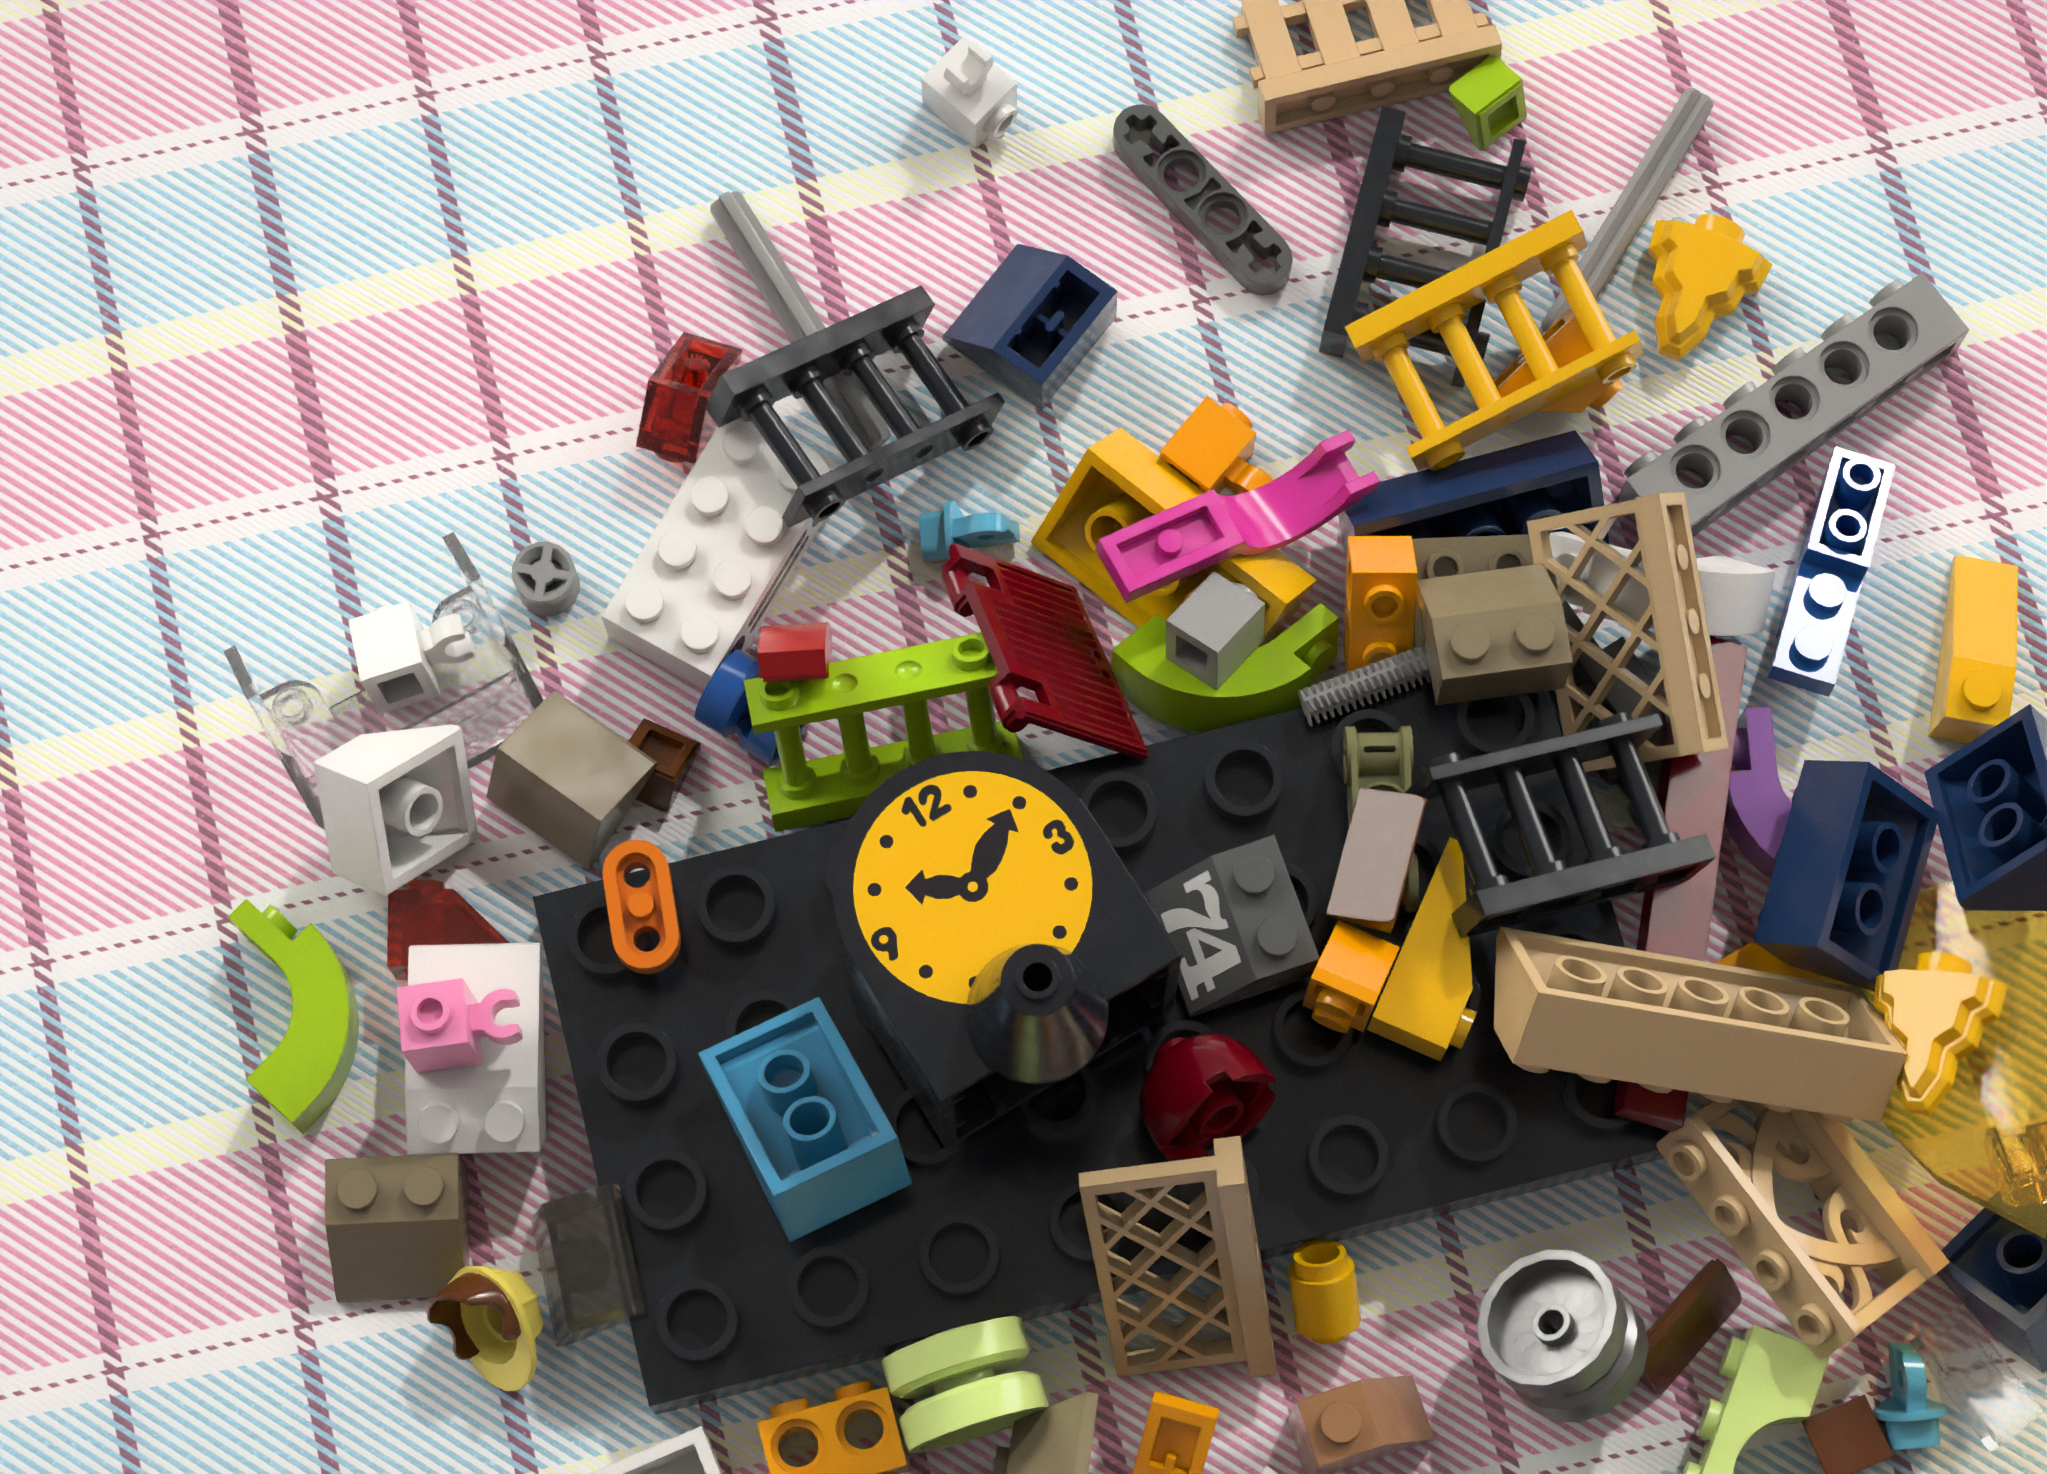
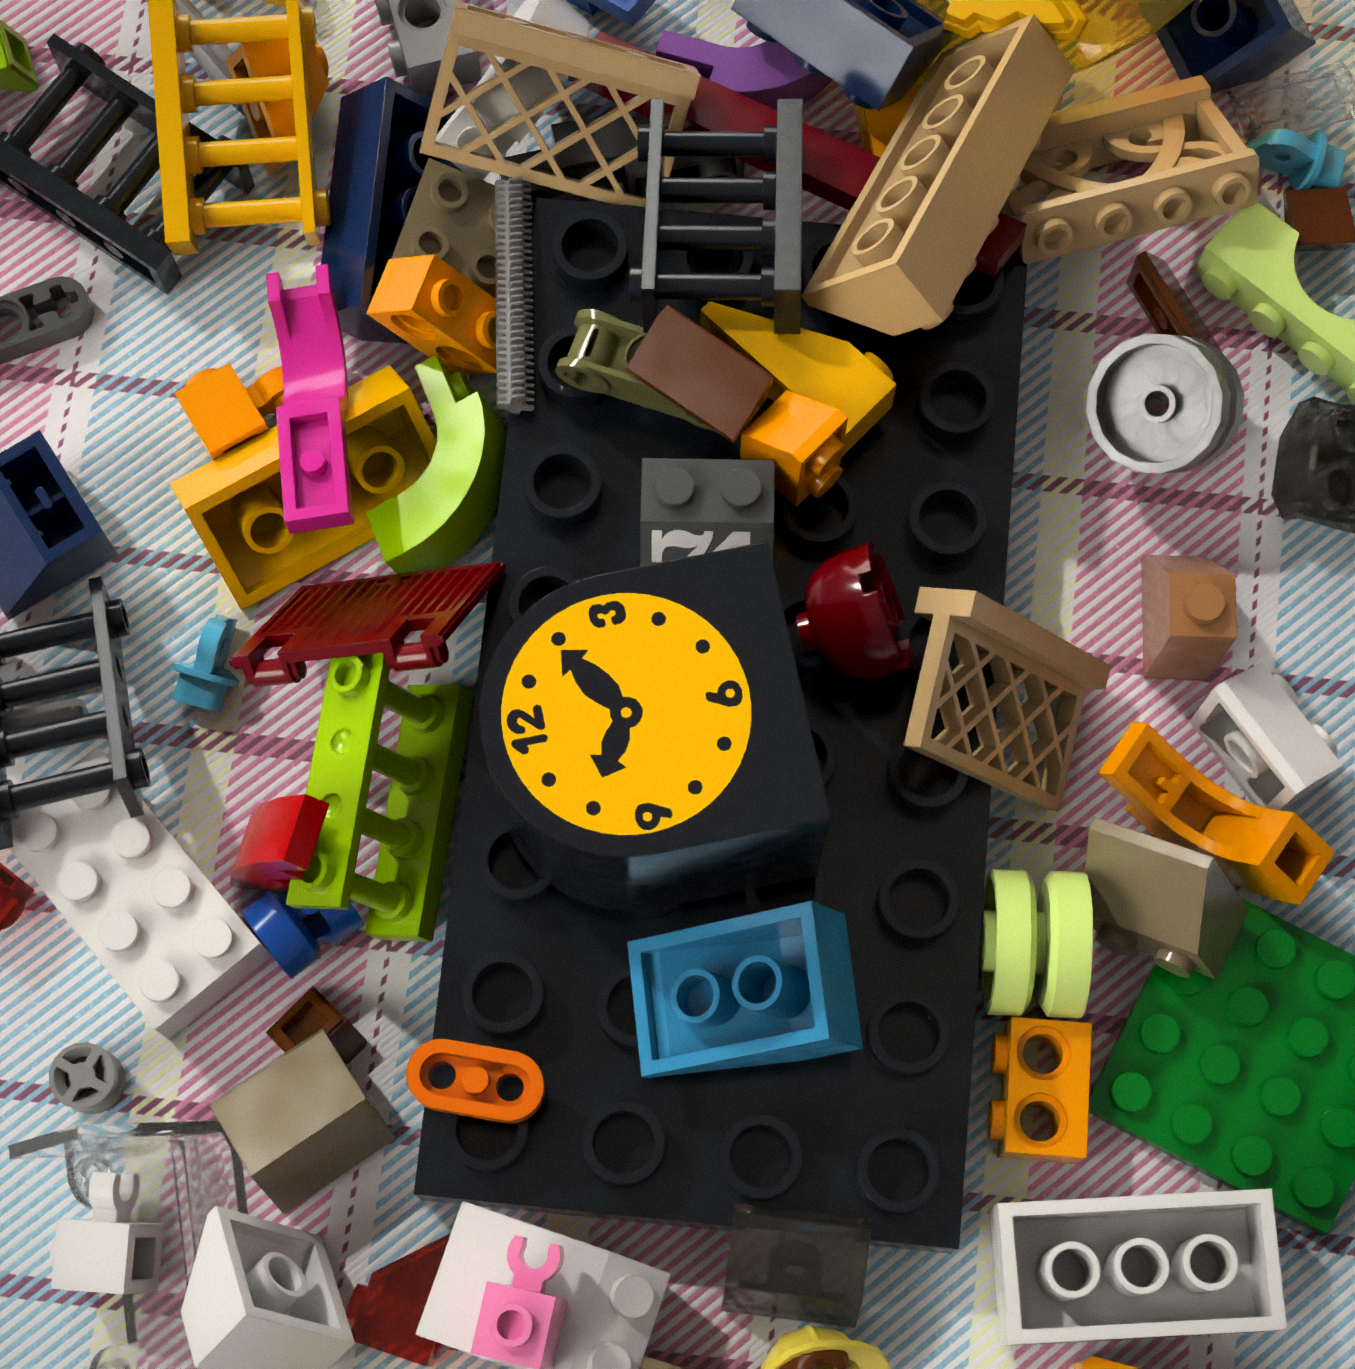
camera: 70 degrees left, 0 degrees up
(1037, 1013) = (778, 691): black cone -> none
(1215, 630) = (410, 457): light grey brick -> none
(1324, 1291) = (1051, 596): yellow brick -> none
(1494, 634) = (516, 210): dark tan slope -> none

